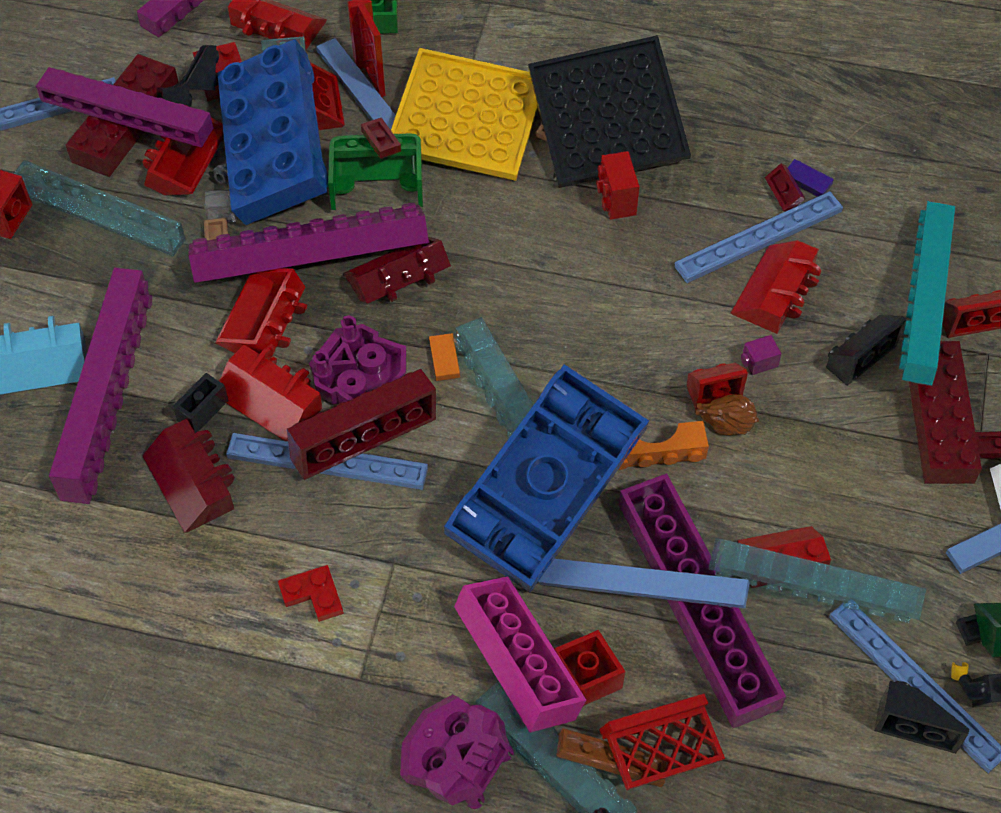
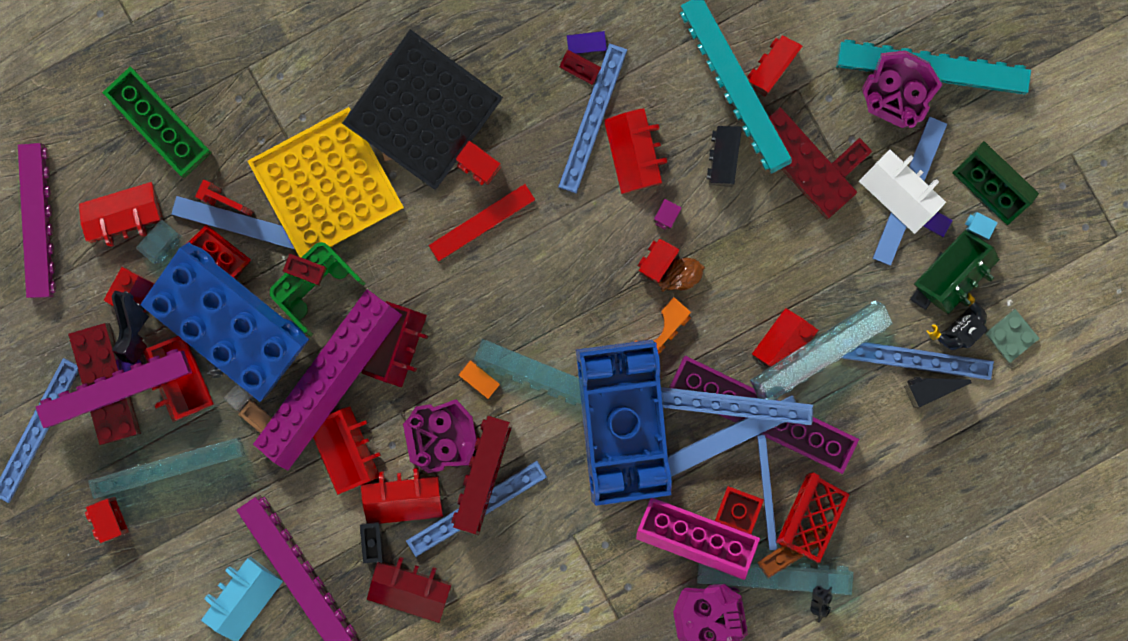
camera: 40 degrees left, 30 degrees up
(314, 586) = (545, 589): red plate -> none
(575, 239) = (481, 222): none -> red tile
(636, 666) = (767, 495): none -> medium blue tile
(681, 549) = (737, 406): none -> medium blue tile

